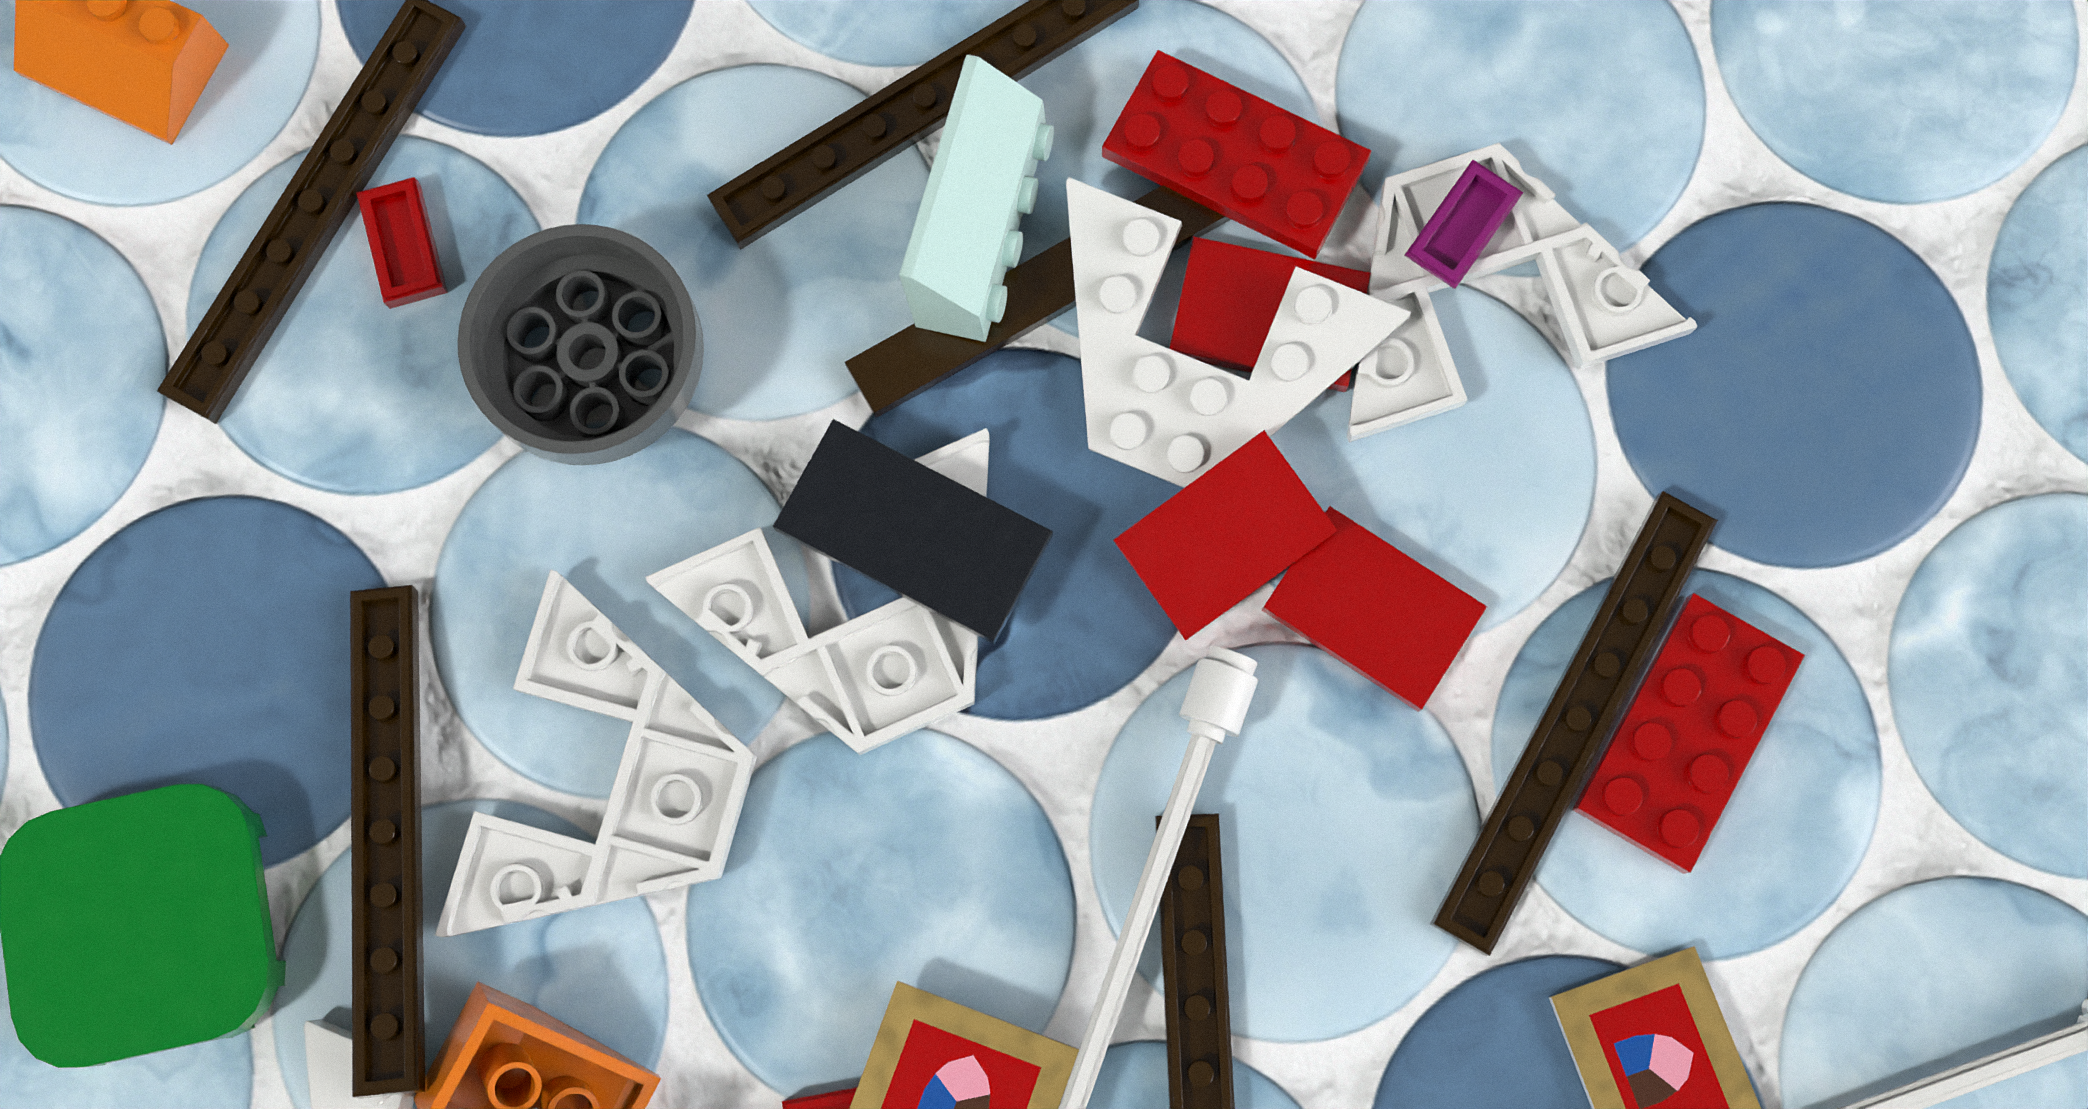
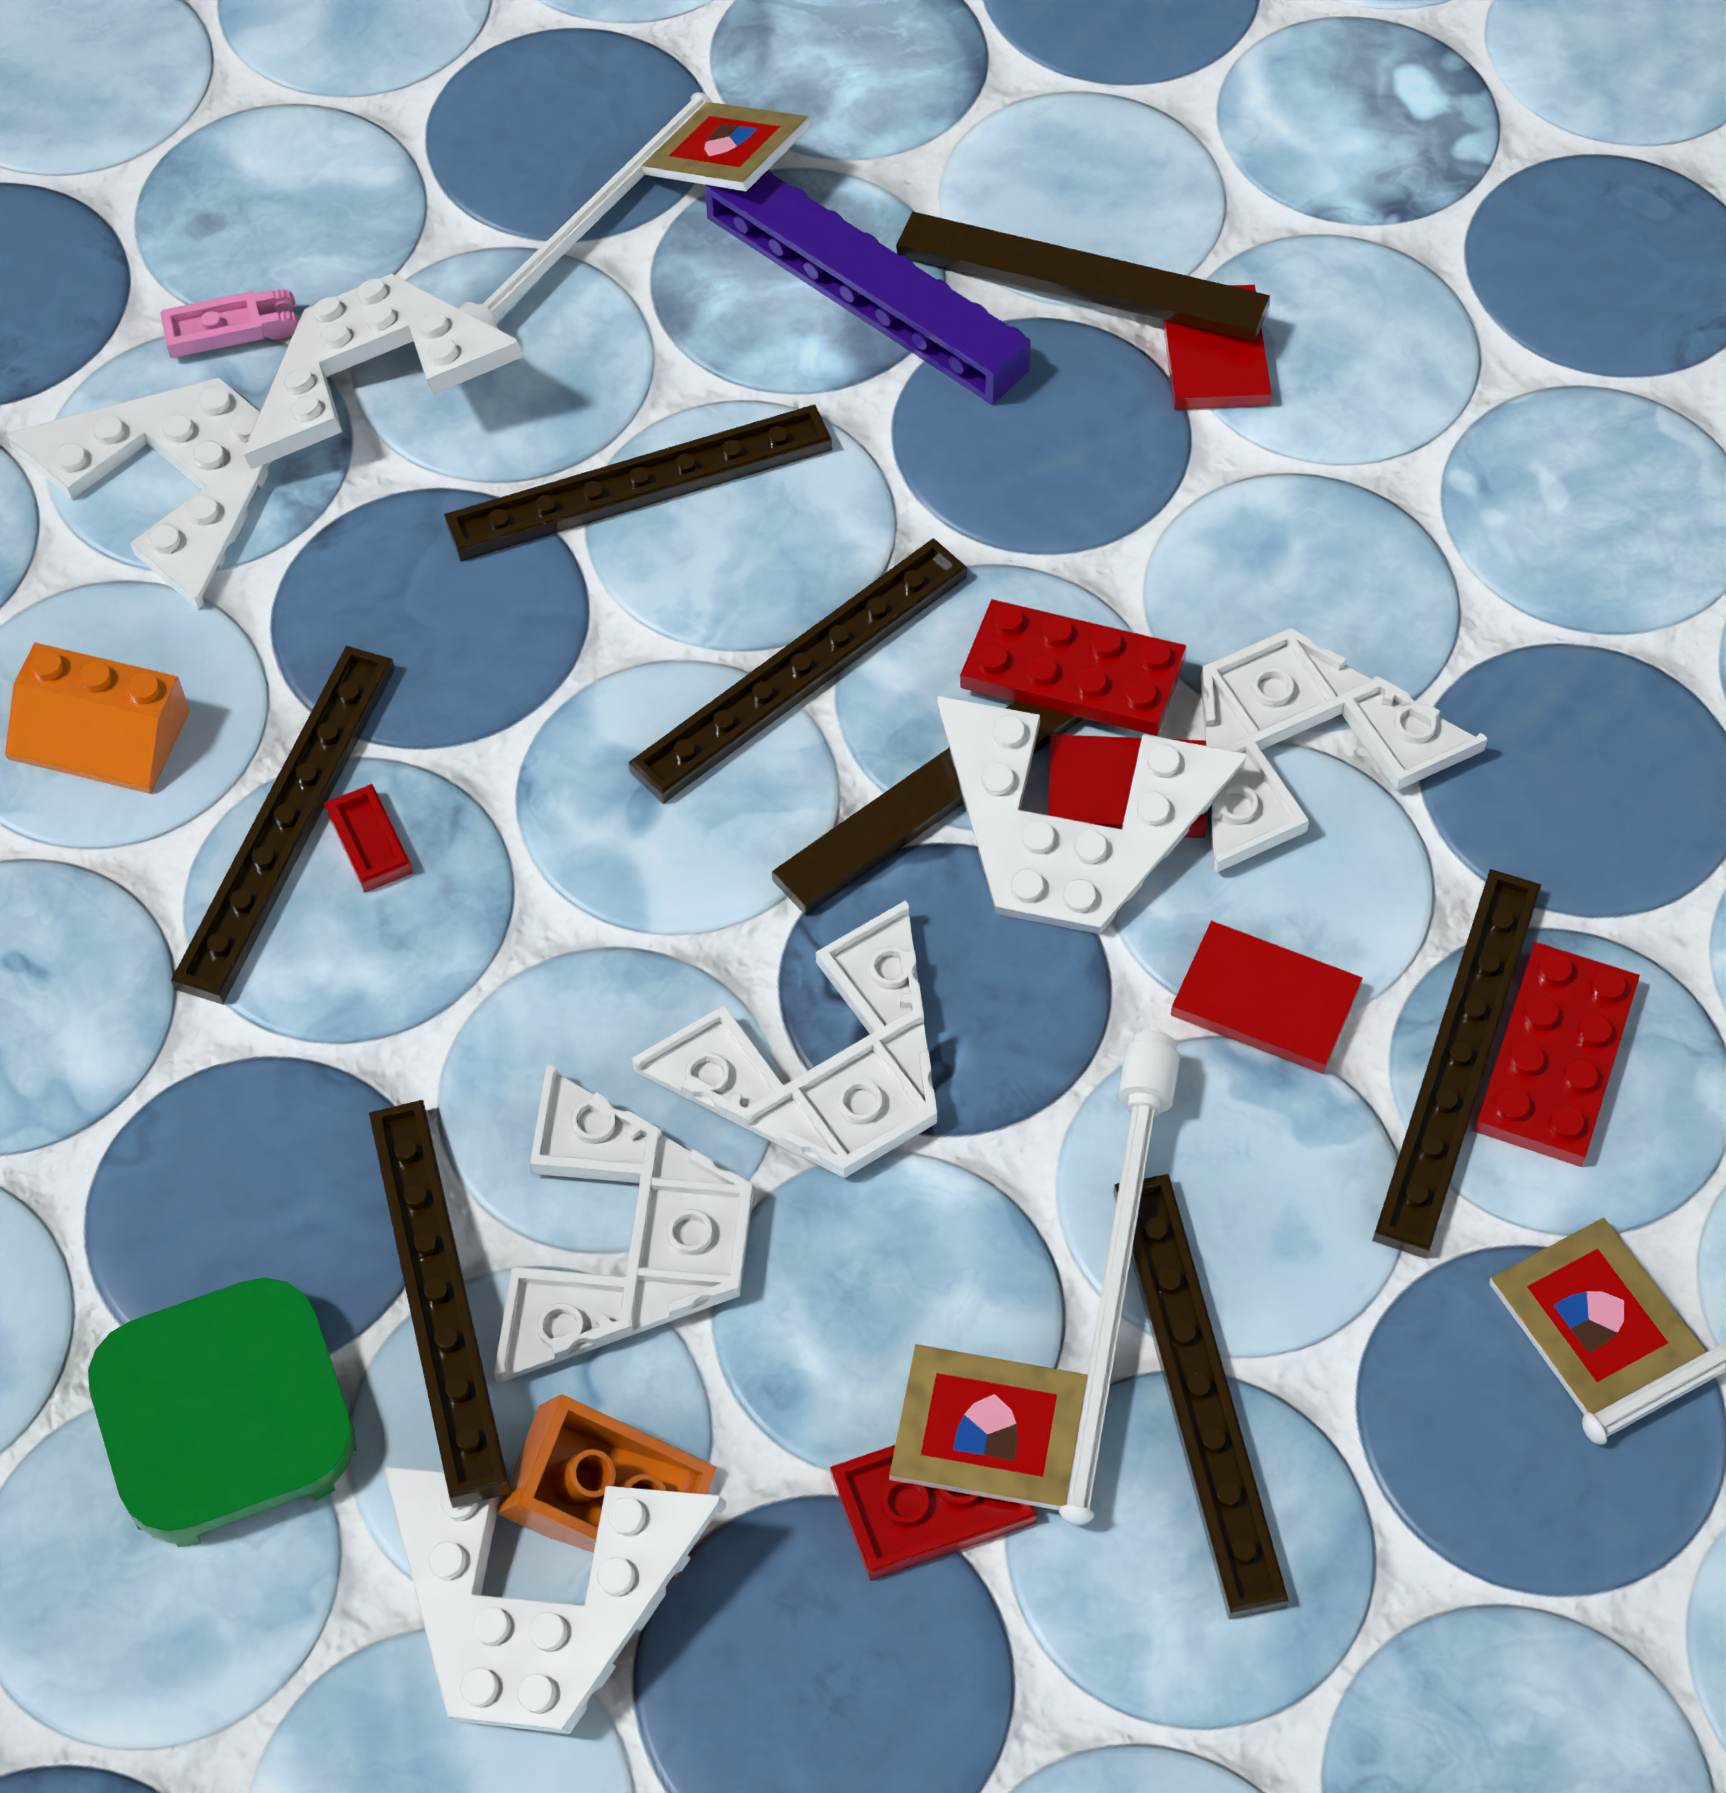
camera: 10 degrees left, 20 degrees down
(536, 288) = (573, 828): dark grey wheel -> none
(913, 531) = (859, 984): black tile -> none
(975, 203) = (864, 728): light aqua slope -> none
(1225, 535) = (1127, 953): red tile -> none
(1463, 224) = (1275, 688): magenta tile -> none

